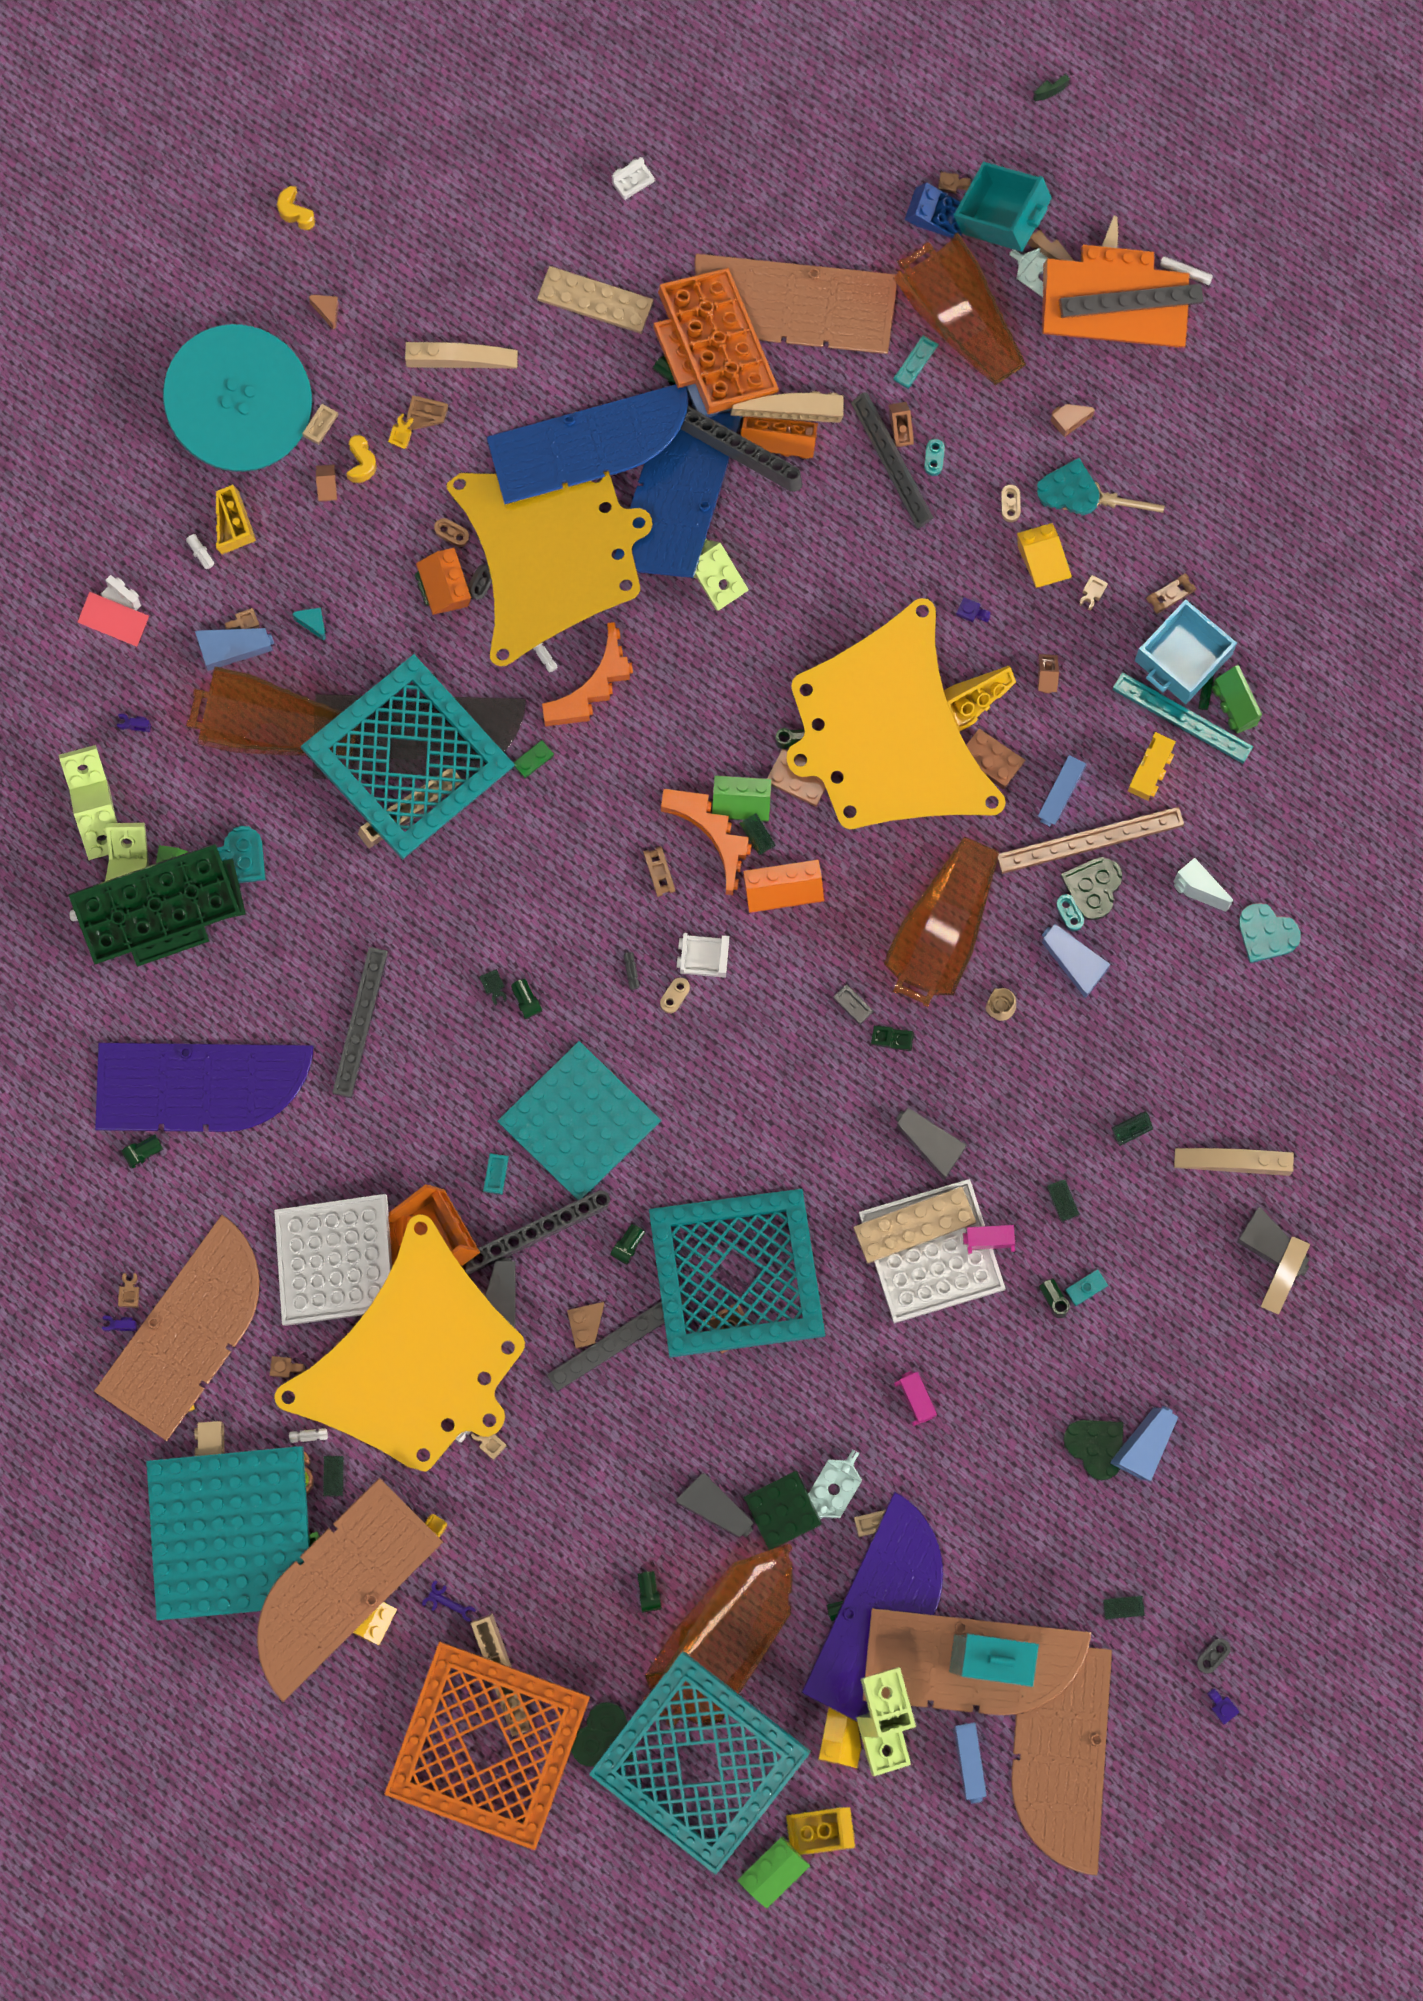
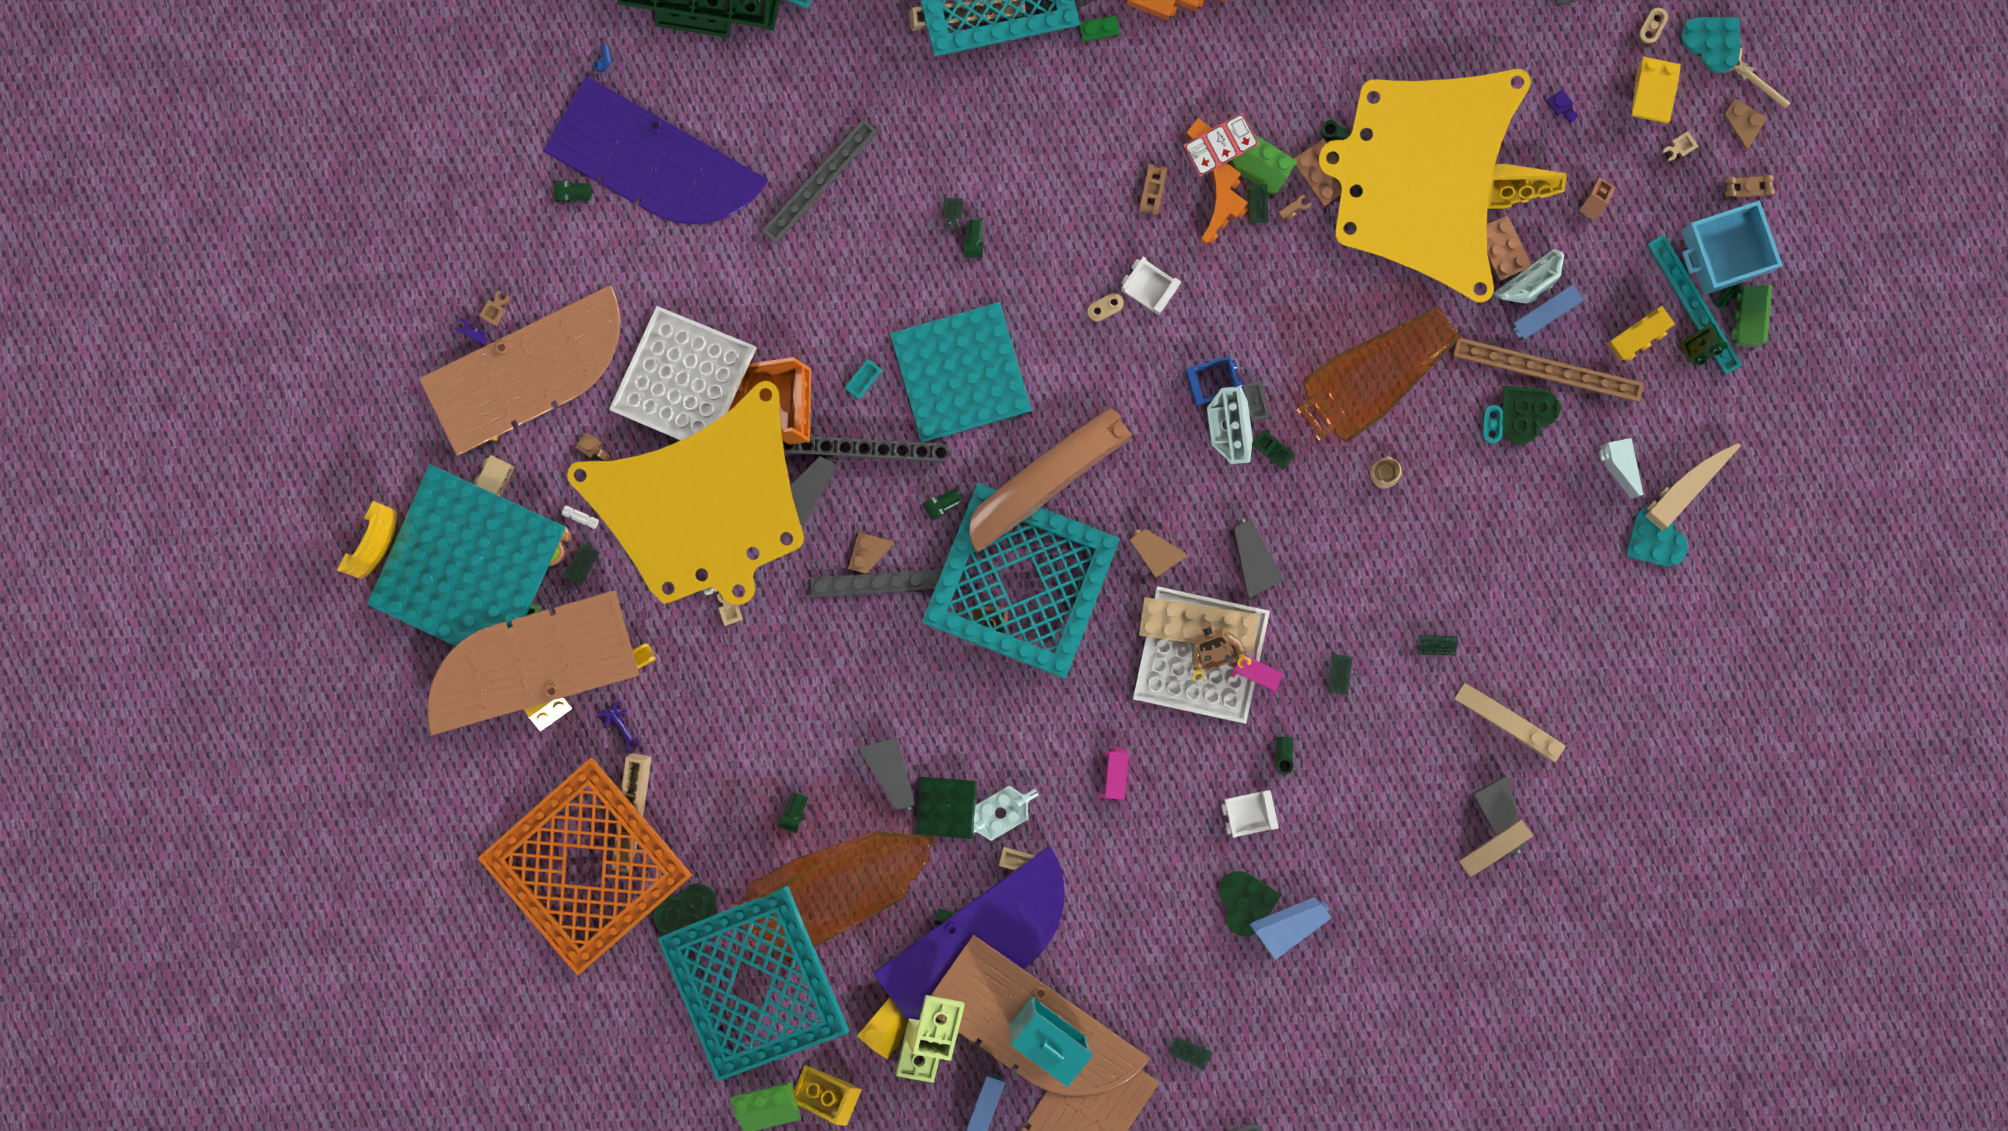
camera: 30 degrees right, 10 degrees up
(108, 1020) = (604, 62): none -> blue arm
(136, 1561) = (374, 542): none -> yellow slope
(631, 970) = (1079, 264): dark grey axle -> none
(697, 800) = (1221, 144): none -> sticker
(707, 1169) = (1046, 477): none -> nougat slope
(783, 886) = (1254, 262): orange slope -> none
(789, 826) = (1289, 212): none -> medium nougat plate
(792, 1020) = (1193, 381): none -> blue window
(840, 1182) = (1155, 552): none -> medium nougat slope
(843, 1036) = (1231, 425): none -> light aqua wedge
(942, 1236) = (1216, 649): none -> medium nougat torso
(1034, 770) = (1533, 280): none -> light aqua wedge
(1054, 1366) = (1250, 813): none -> white panel
(1075, 959) = (1473, 468): slope -> none
(1086, 1288) = (1317, 761): teal plate -> none
(1135, 542) = (1744, 121): none -> medium nougat wing
(1210, 747) = (1703, 345): none -> dark green bracket
(1267, 876) = (1684, 491): none -> tan slope

